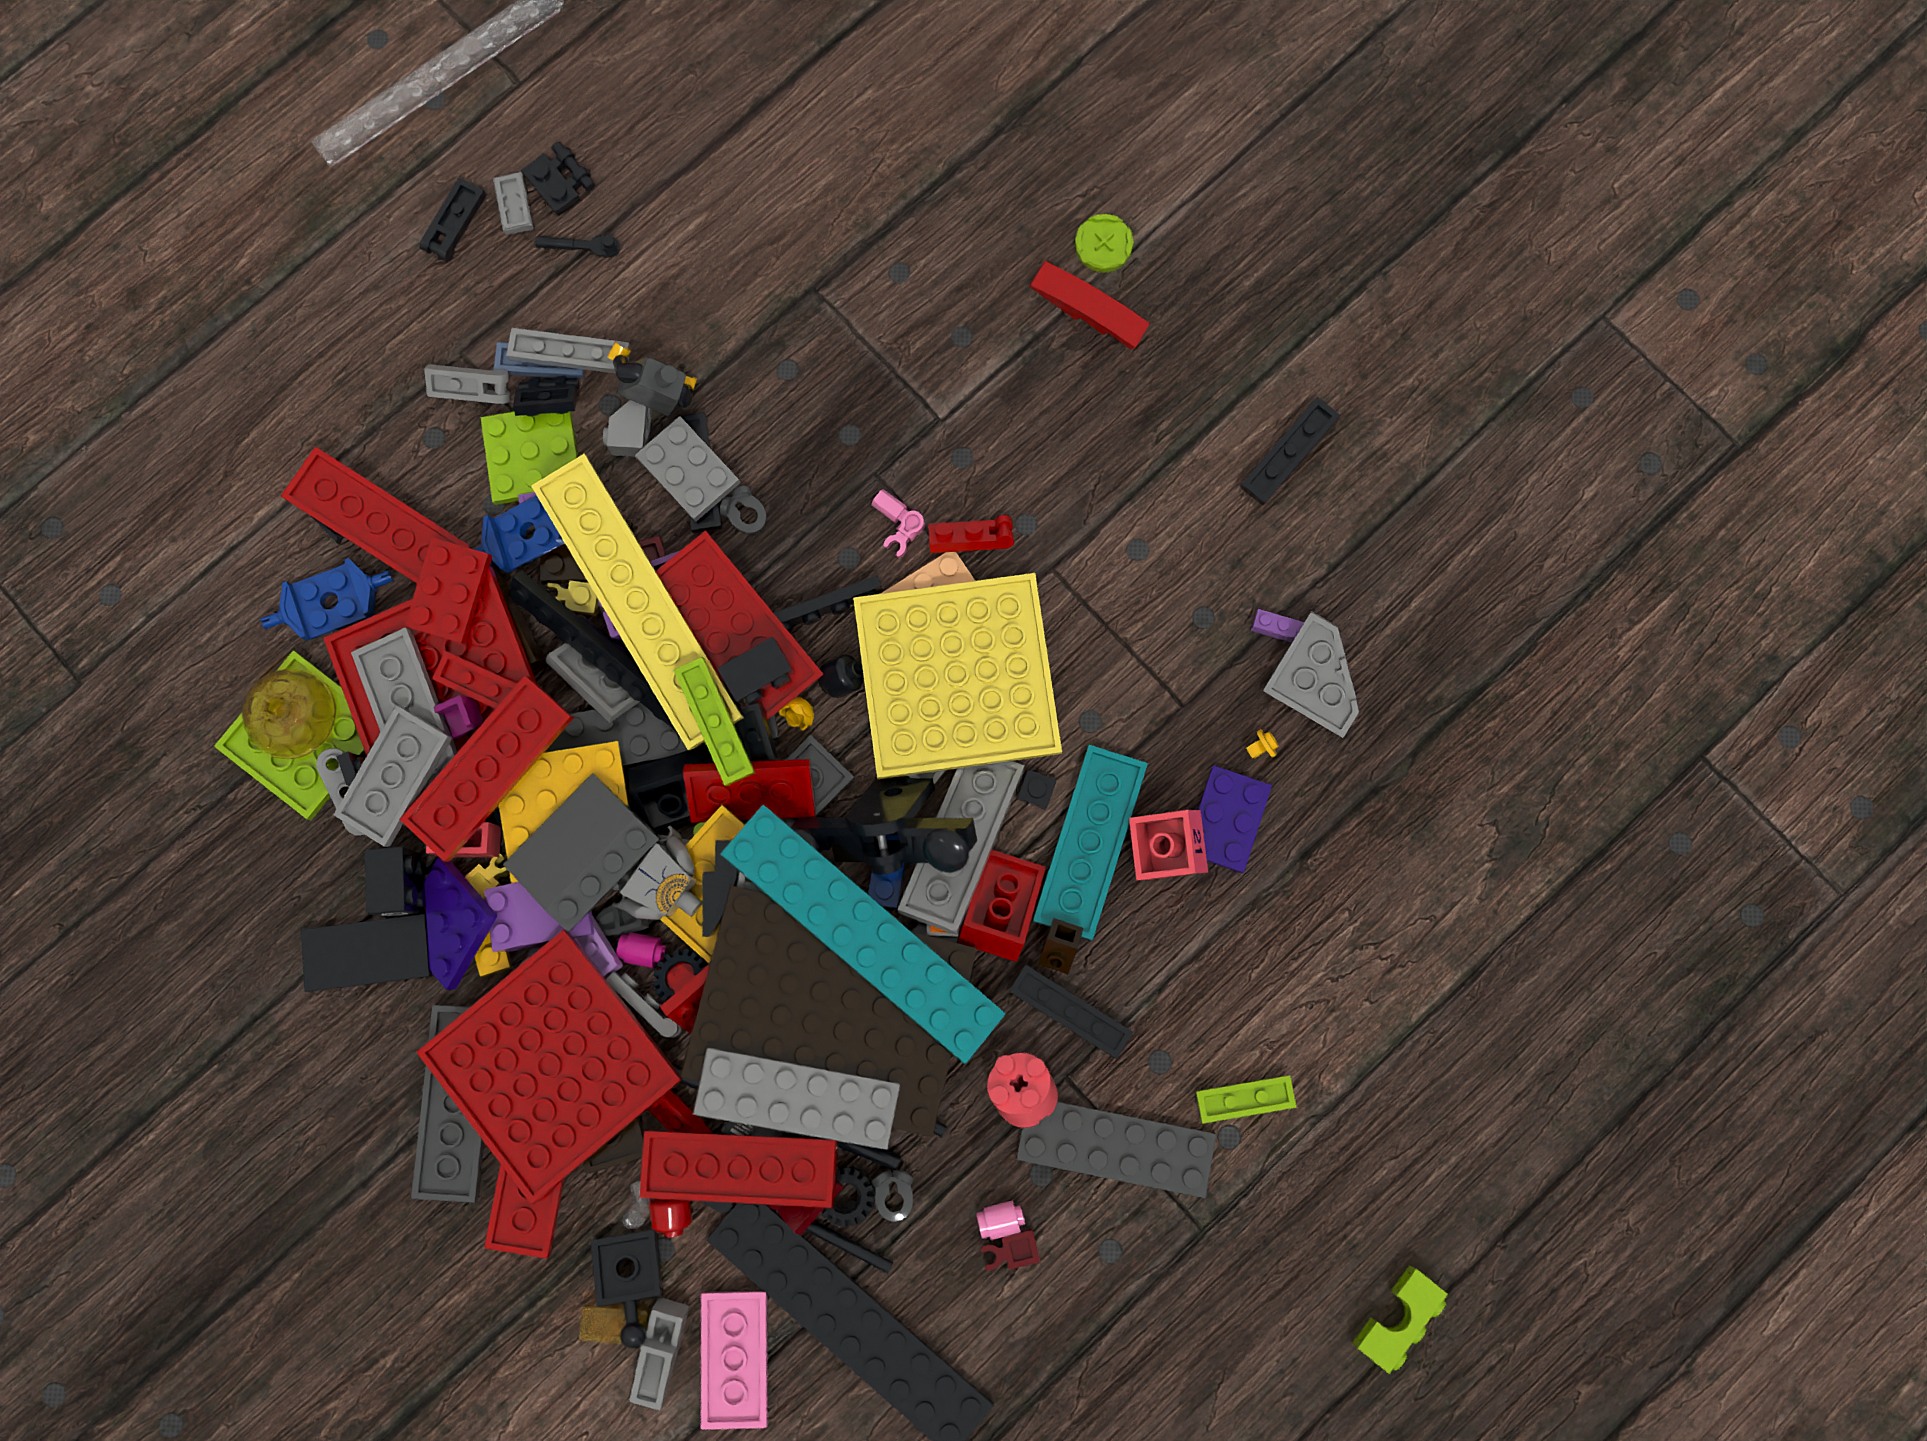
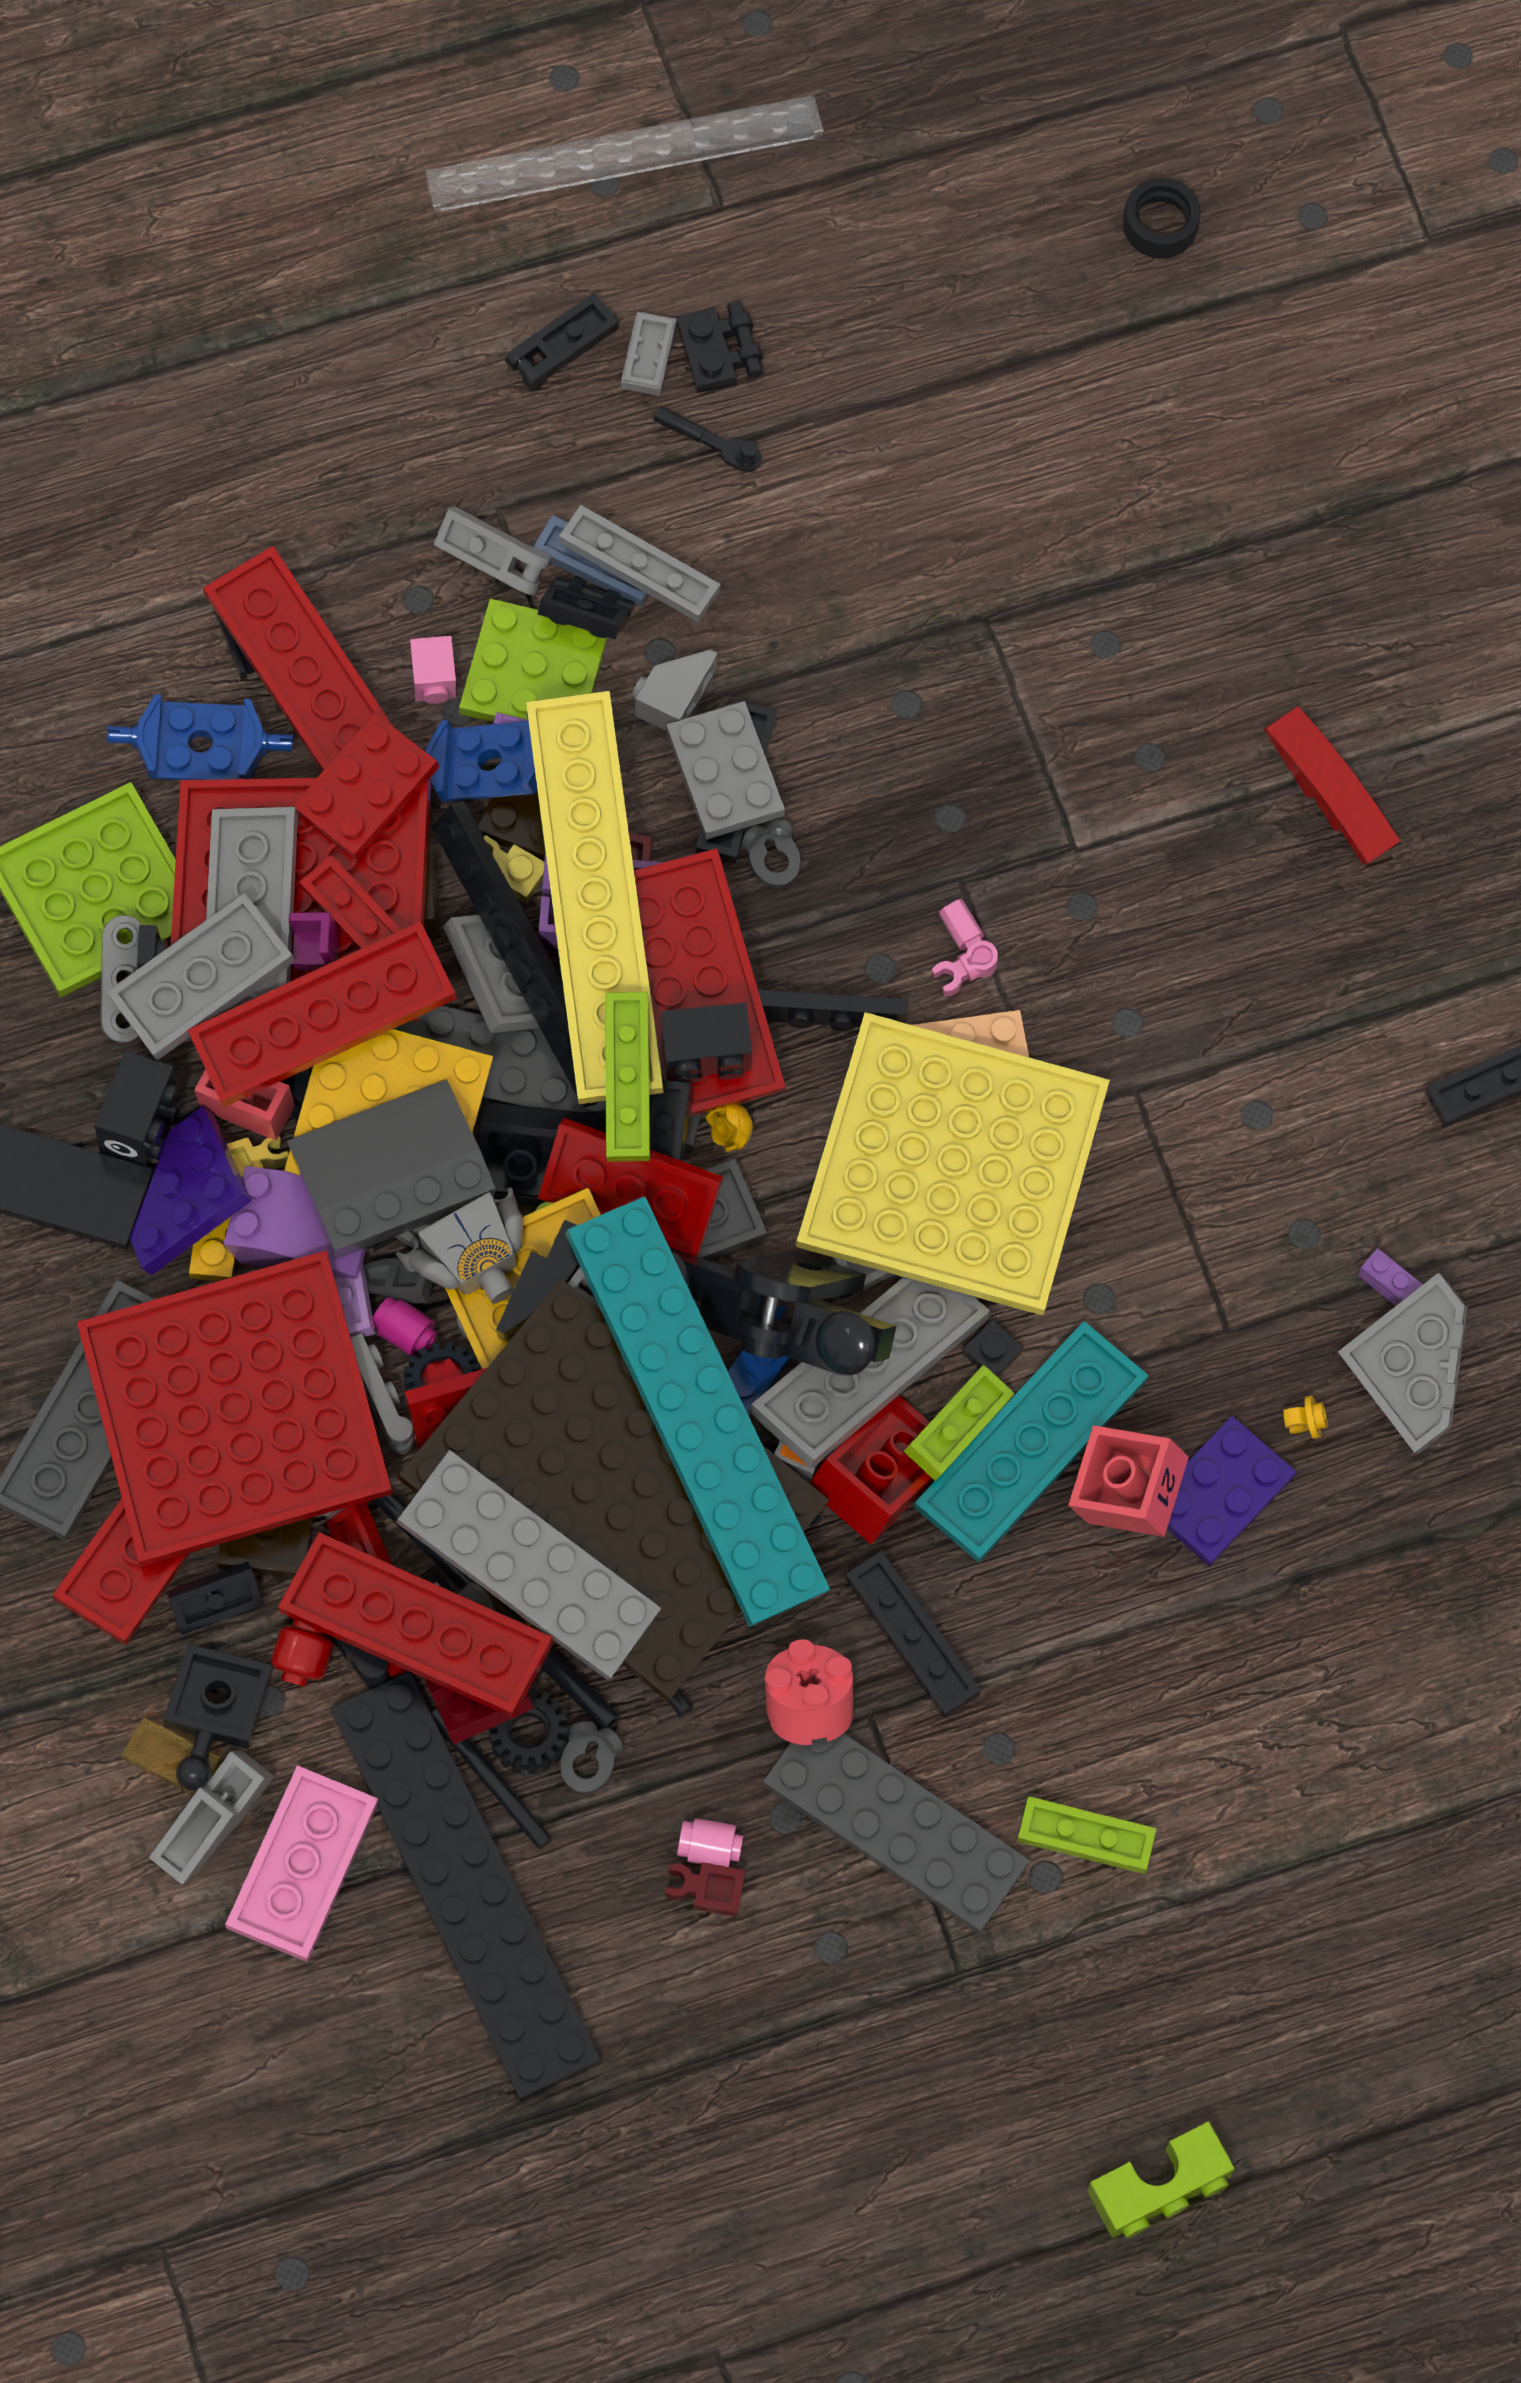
camera: 15 degrees right, 10 degrees down
(300, 723) = (97, 873): clear yellow piece -> none
(463, 483) = (433, 669): none -> bright pink brick
(594, 1199) = (214, 1598): none -> black plate
(638, 1210) = (262, 1635): clear arm -> none
(651, 382) = (728, 644): dark grey torso -> none
(841, 676) = (806, 1104): black head -> none
(971, 535) = (1050, 1004): red plate -> none
(1038, 853) = (959, 1422): none -> lime plate
(1060, 946) = (935, 1546): dark brown brick -> none
(1104, 243) = (1387, 717): lime tile -> none

